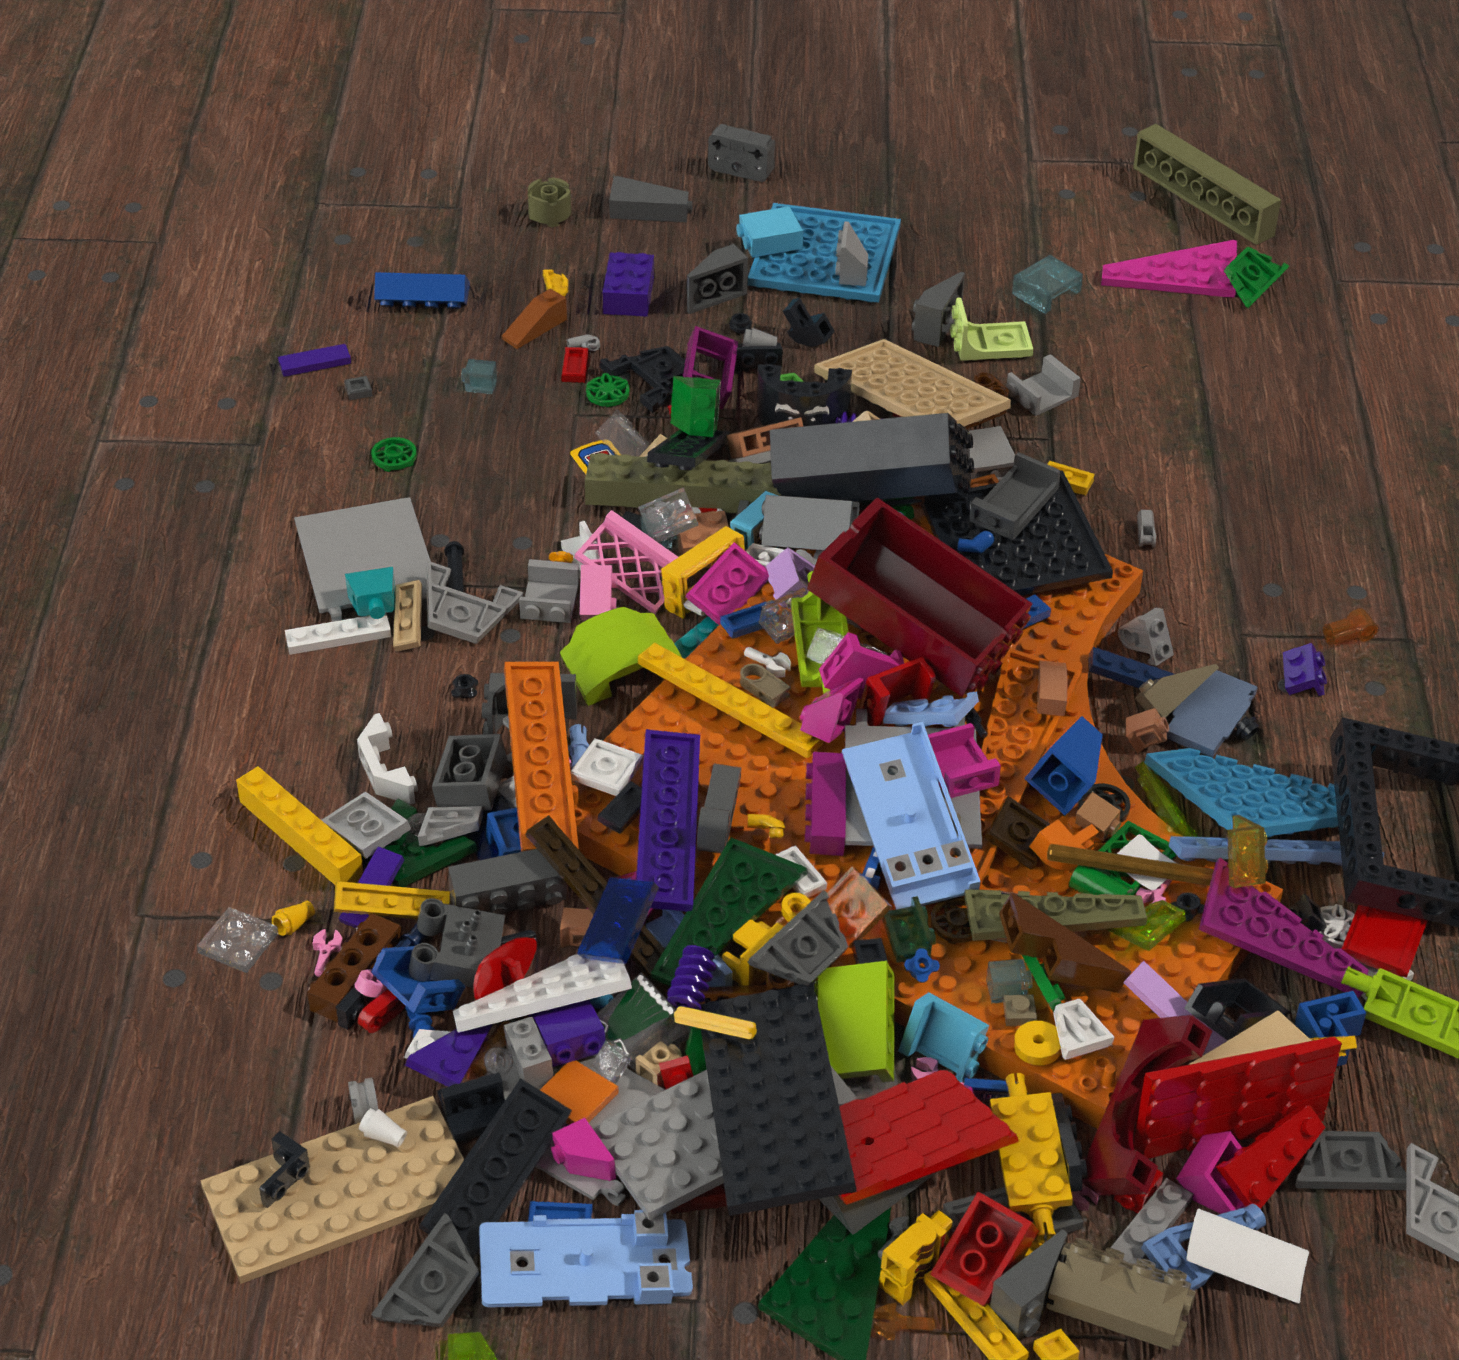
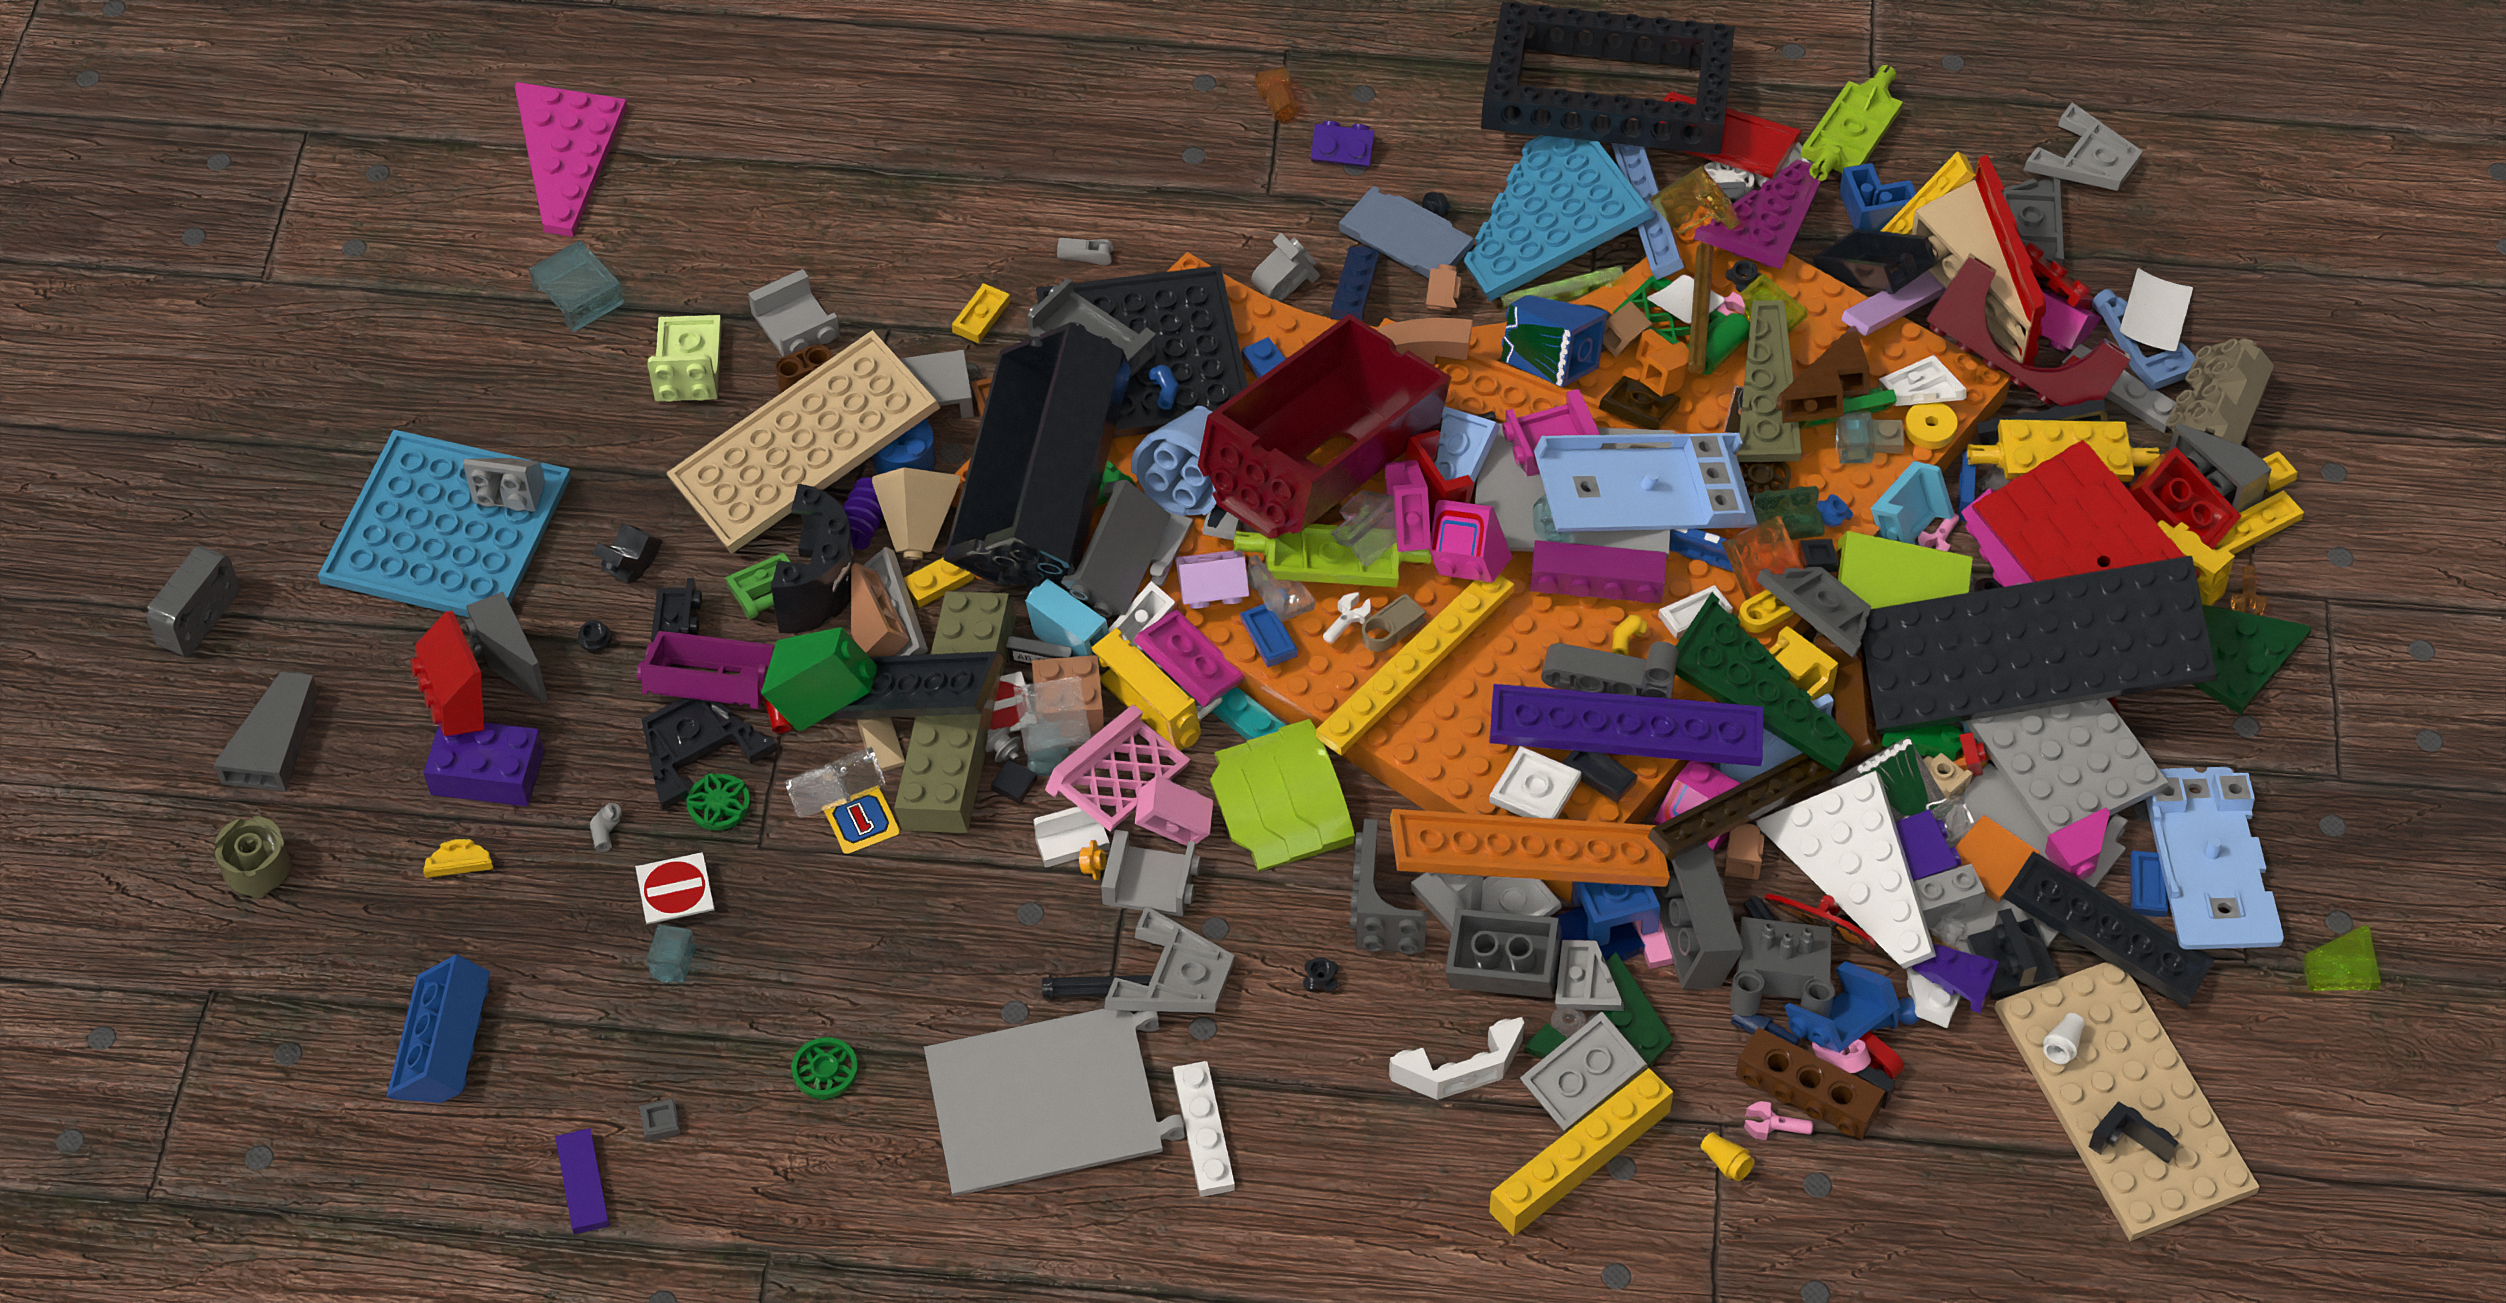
camera: 85 degrees left, 10 degrees up
(237, 939) = (1764, 1216): clear plate -> none
(362, 1098) = (2016, 1064): light grey wheel -> none
(372, 591) = (1155, 1071): teal torso -> none
(380, 871) = (1688, 1066): dark purple tile -> none
(383, 900) = (1717, 1039): yellow plate -> none
(407, 615) = (1187, 1036): tan tile -> none
(431, 1281) = (2253, 994): dark grey wing -> none
(532, 374) = (674, 888): none -> piece
(537, 318) = (544, 882): dark orange slope -> none
(575, 364) = (650, 840): red tile -> none
(618, 920) = (1790, 778): clear blue tile -> none
(674, 251) = (449, 677): none -> red slope
(691, 977) = (1868, 718): dark purple piece -> none
(715, 1022) = (1930, 697): yellow axle -> none
(758, 338) = (663, 607): light grey cone -> none
(770, 231) = (410, 575): medium azure brick -> none
(934, 310) = (633, 398): dark grey slope -> none
(1170, 691) = (1386, 251): dark tan slope -> none
(1207, 184) = (399, 87): olive brick -> none
(1253, 274) = (606, 74): green wing -> none

